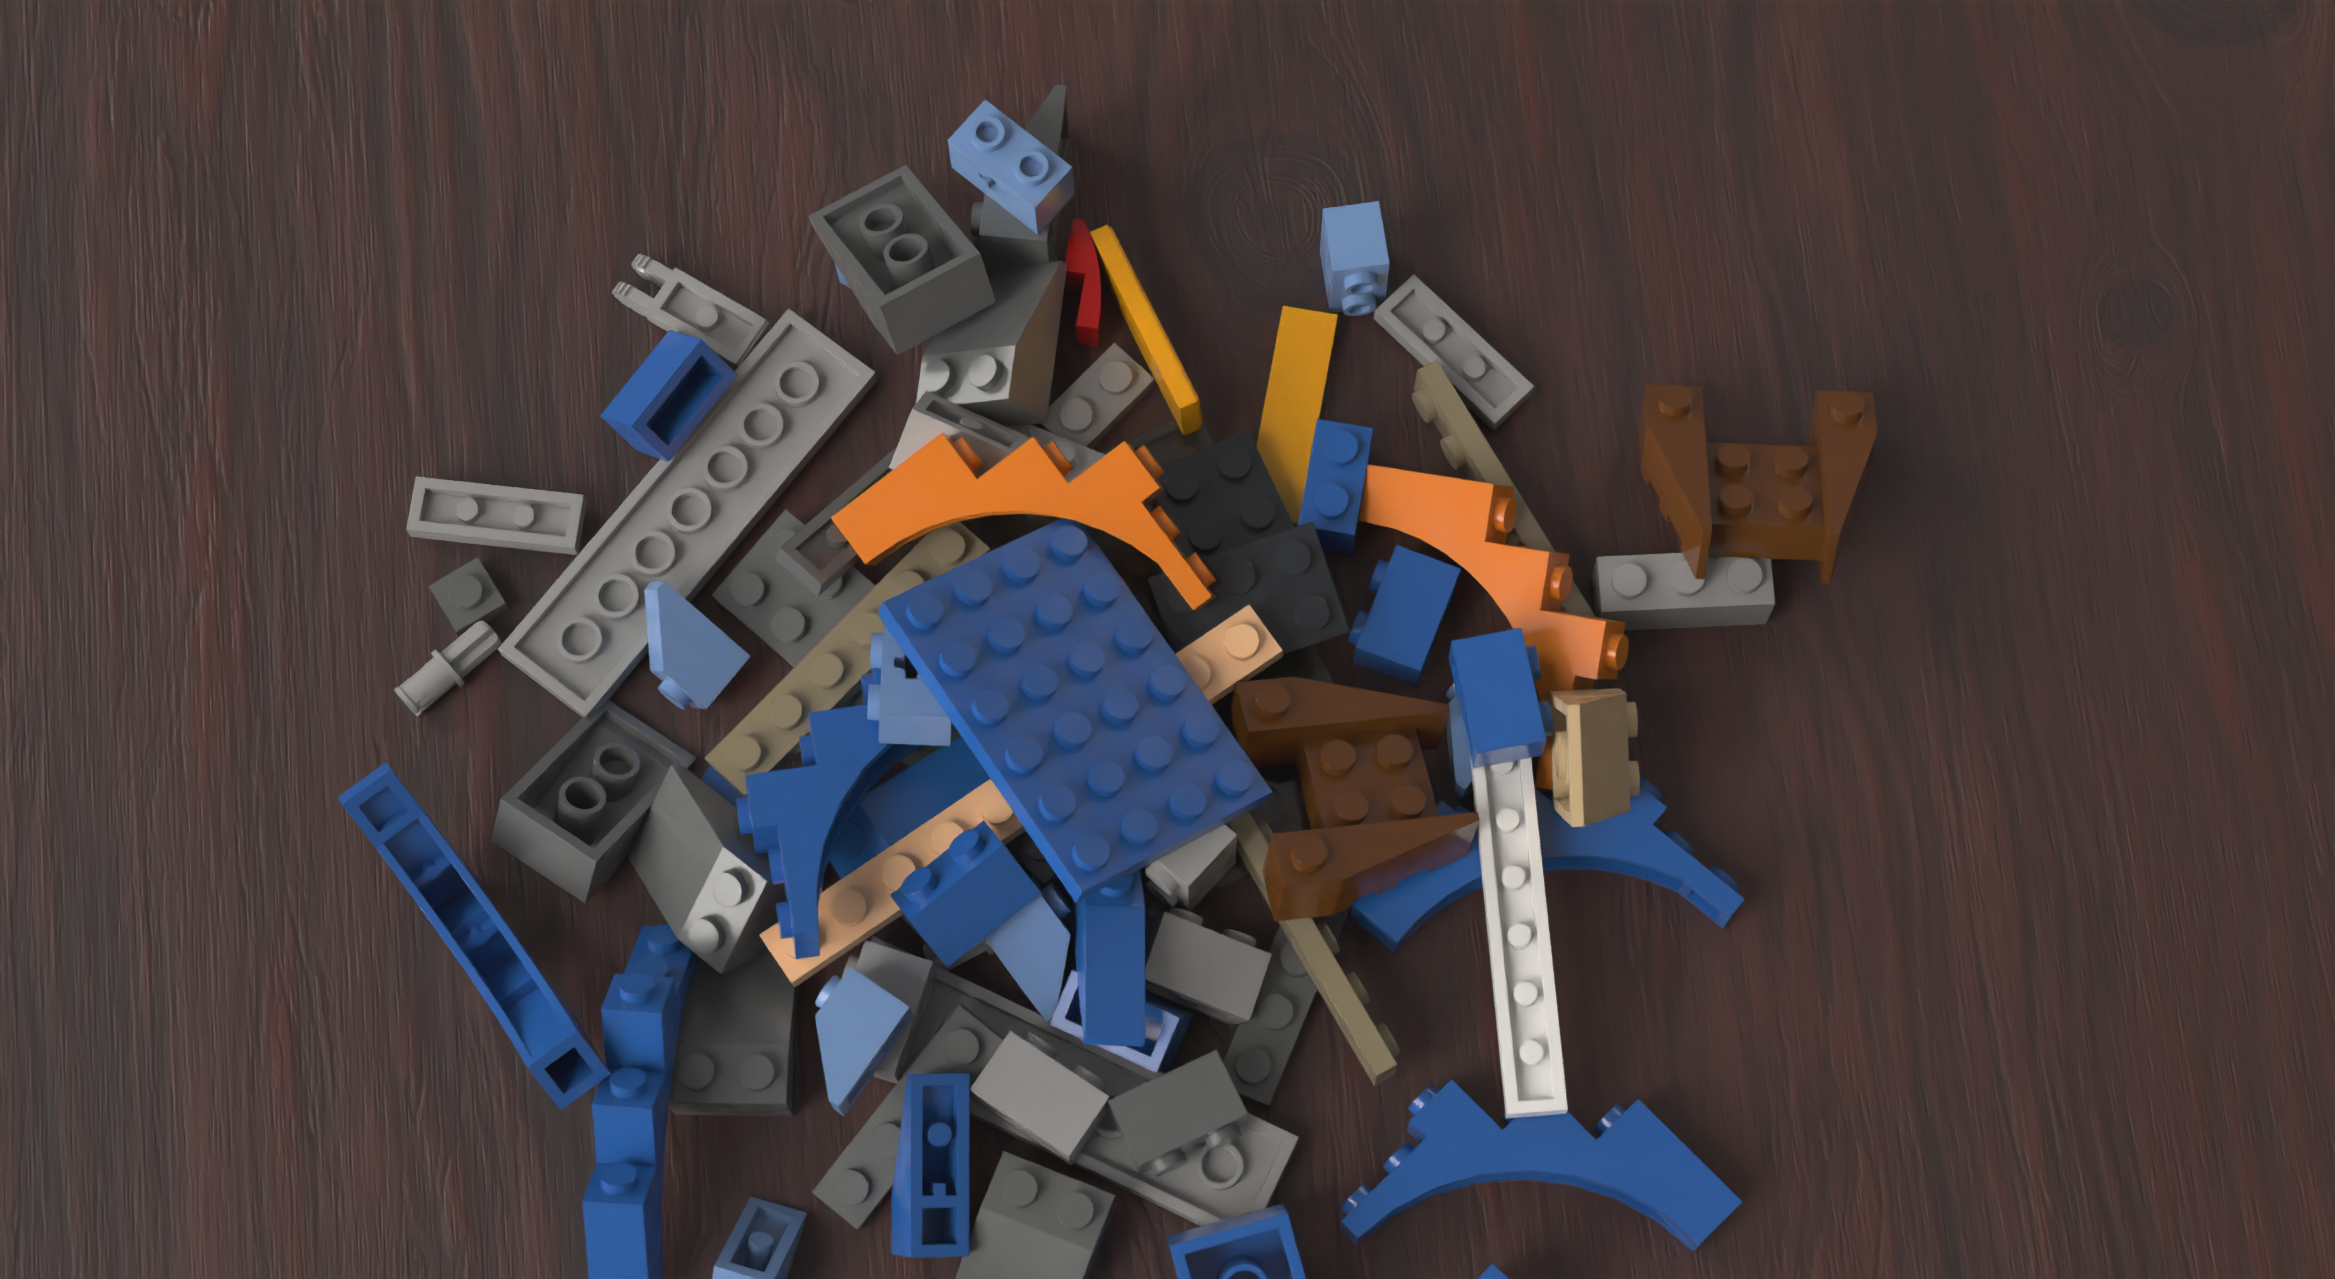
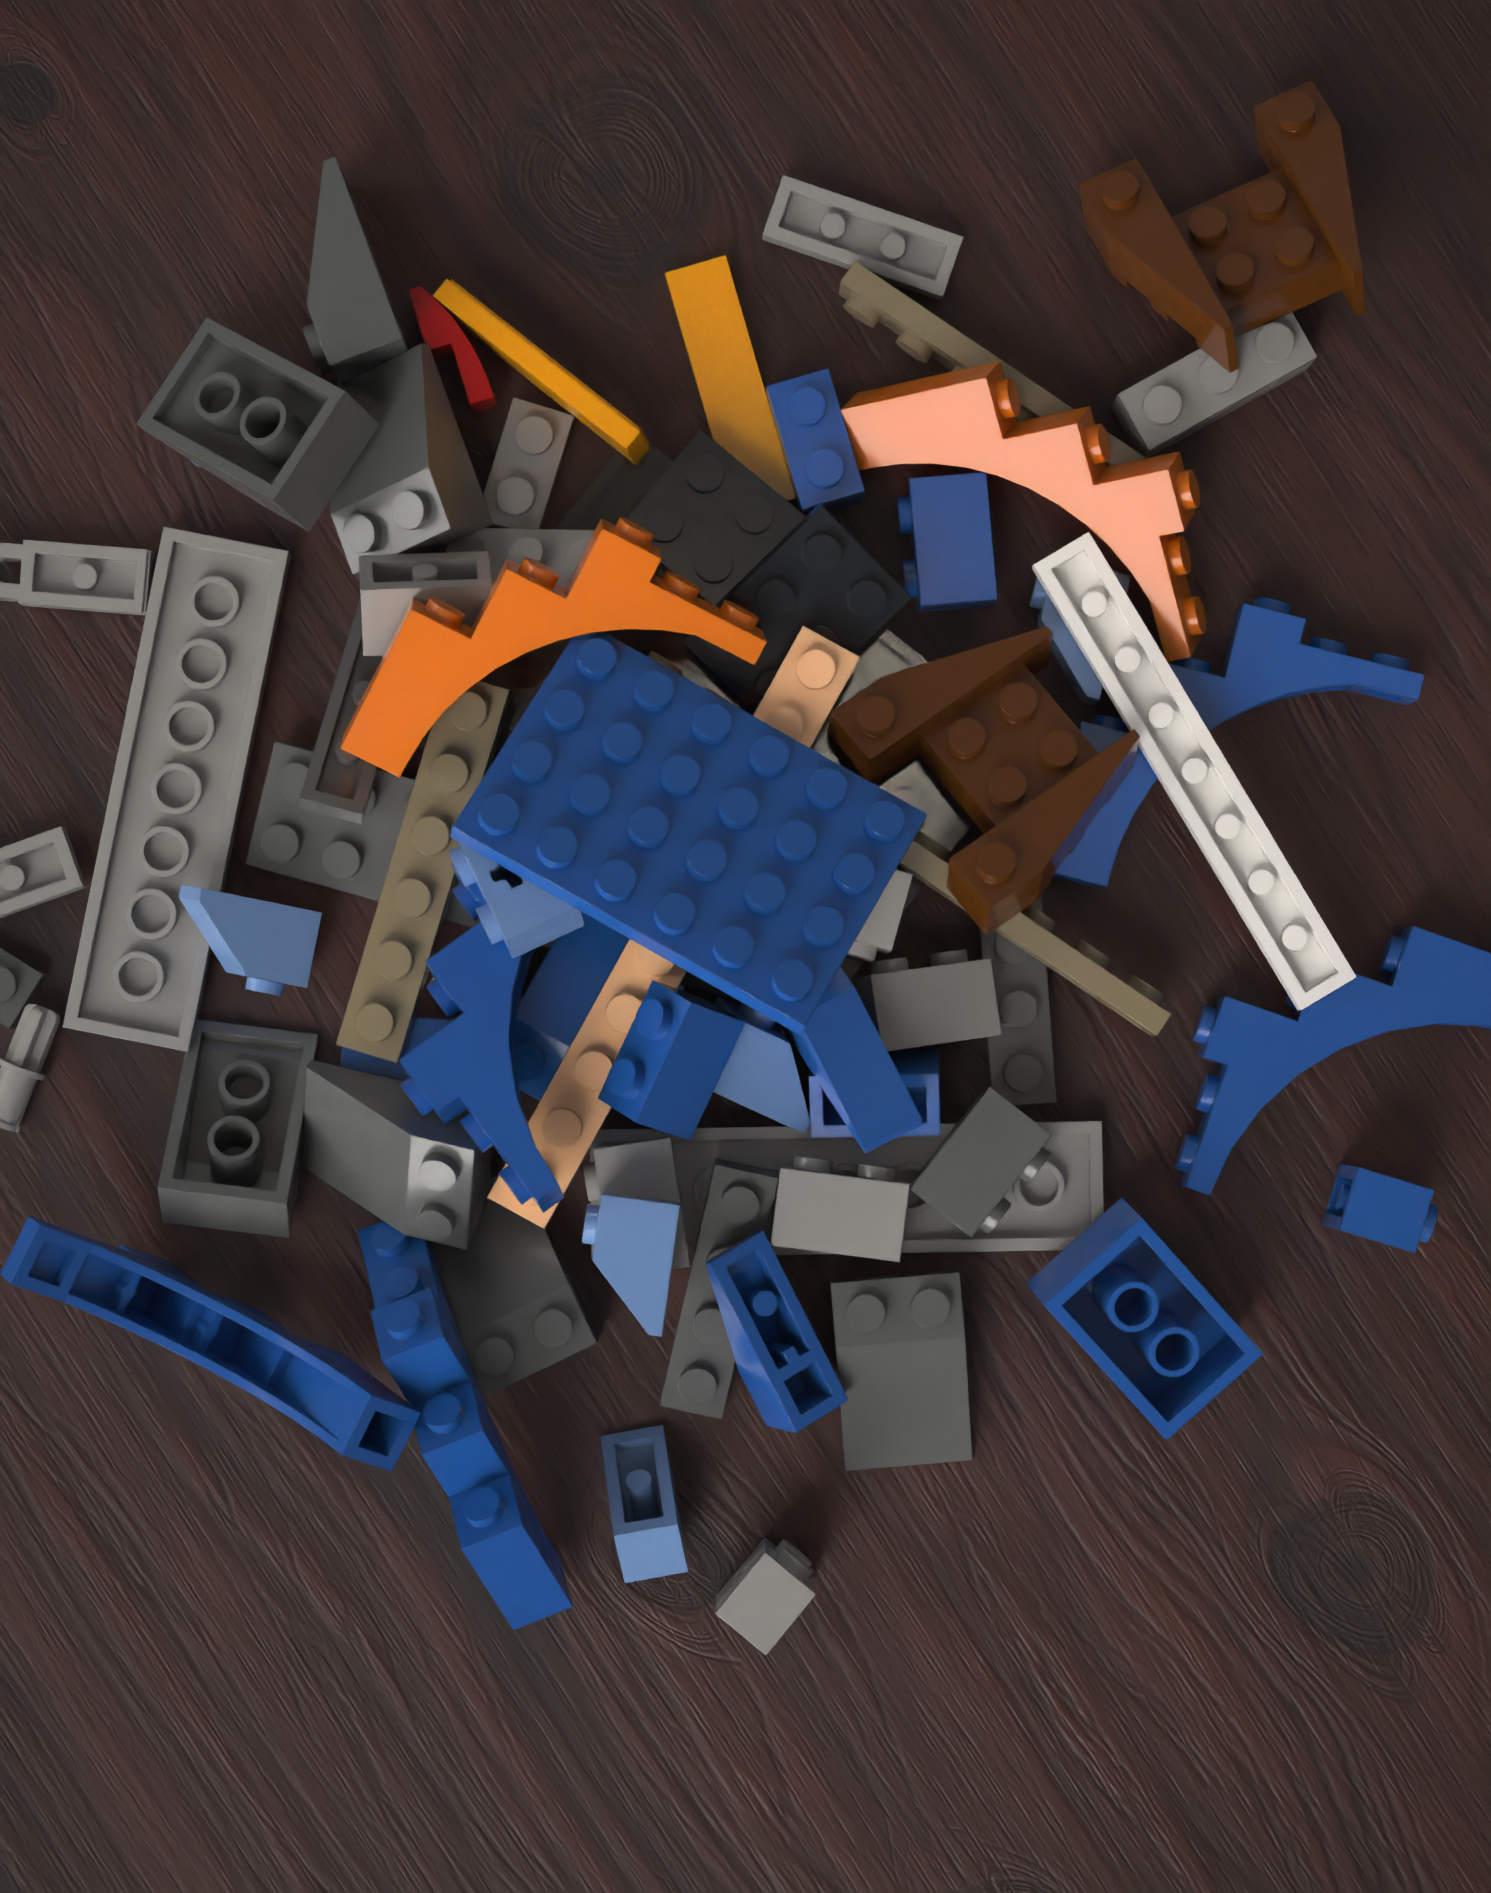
camera: 30 degrees left, 15 degrees up
(669, 395) = (92, 680): blue piece -> none
(1011, 166) = (329, 281): medium blue brick -> none
(1354, 258) = (718, 192): medium blue brick -> none
(1499, 697) = (1099, 599): blue brick -> none
(1591, 754) = (1217, 616): tan slope -> none

